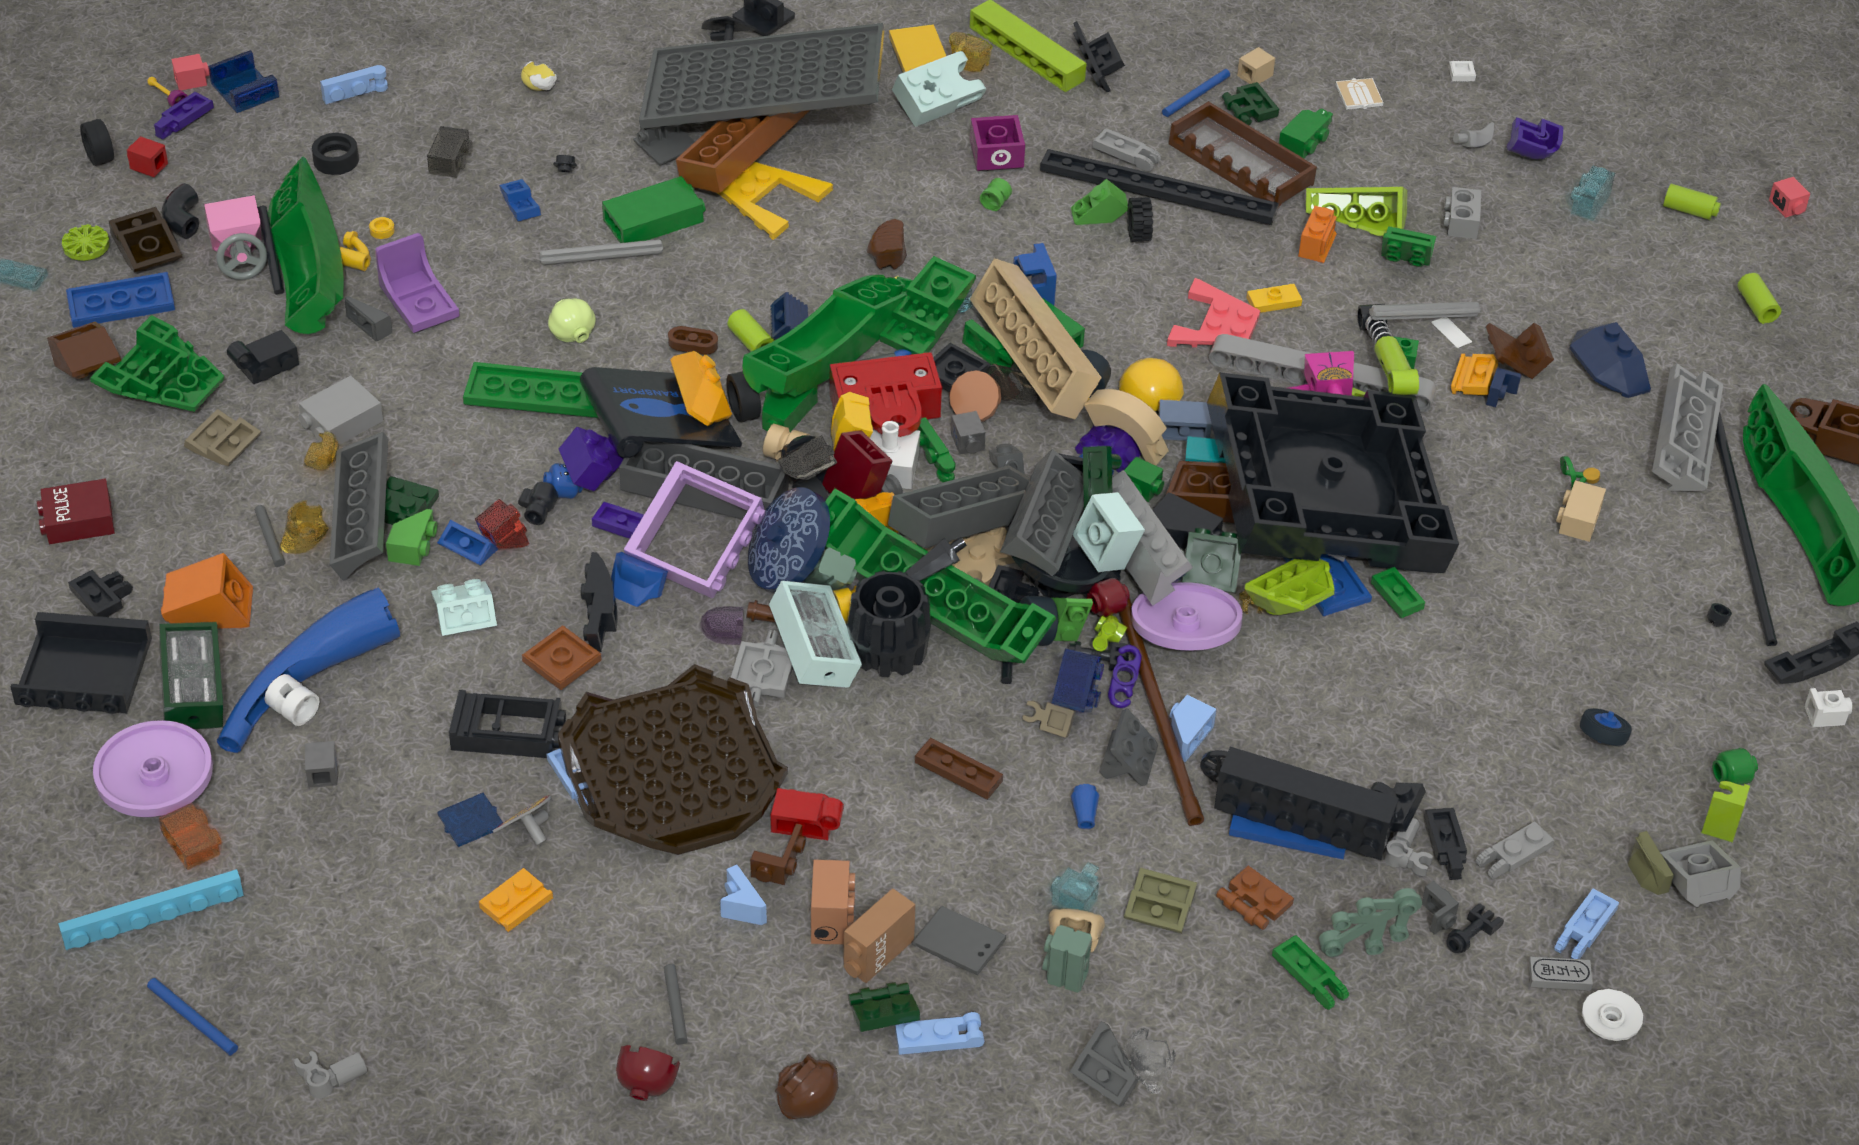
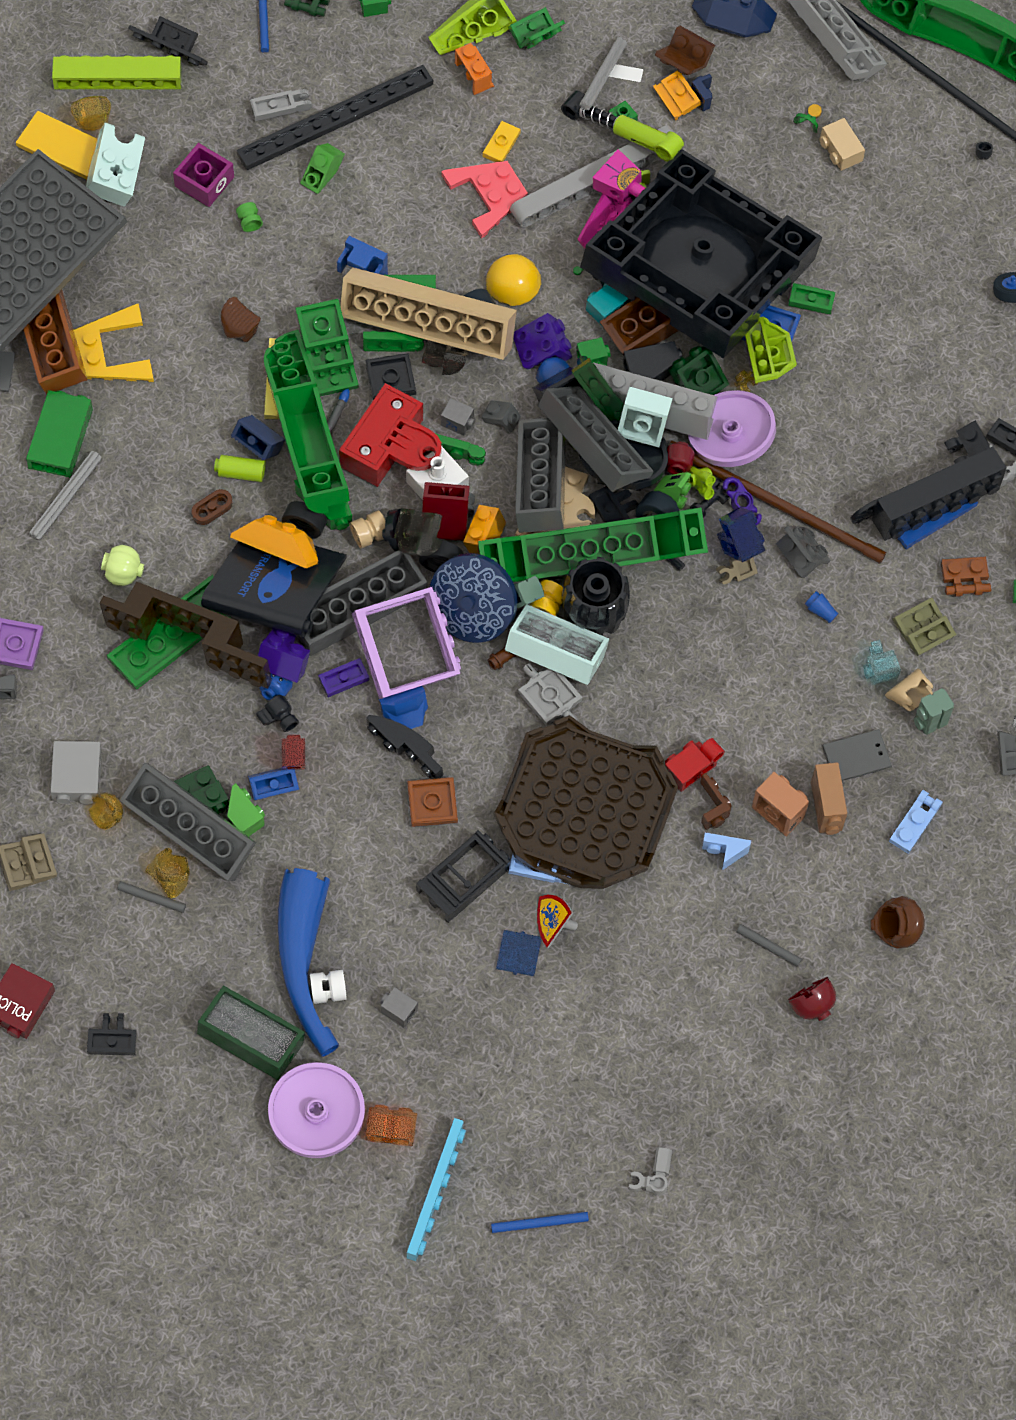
camera: 50 degrees left, 20 degrees up
(83, 663) = (172, 1092): black panel -> none
(208, 593) = (182, 975): orange slope -> none
(464, 607) = (333, 824): light aqua bracket -> none
(515, 899) = (609, 974): light orange plate -> none
(530, 348) = (220, 633): none -> dark brown bracket
(724, 624) = (491, 689): clear purple brick -> none
(850, 415) = (403, 483): yellow slope -> none
(883, 1006) = (880, 837): dark green plate -> none
(936, 559) = (578, 529): black bar -> none
(958, 768) = (730, 650): reddish brown plate -> none
(977, 393) = (432, 386): nougat tile -> none
(1131, 415) = (545, 319): tan arch -> none
(1140, 219) = (364, 156): black tyre -> none
(1184, 419) = (564, 287): sand blue brick -> none
(1191, 724) = (812, 498): light blue slope -> none
(1241, 154) = (356, 44): reddish brown window -> none

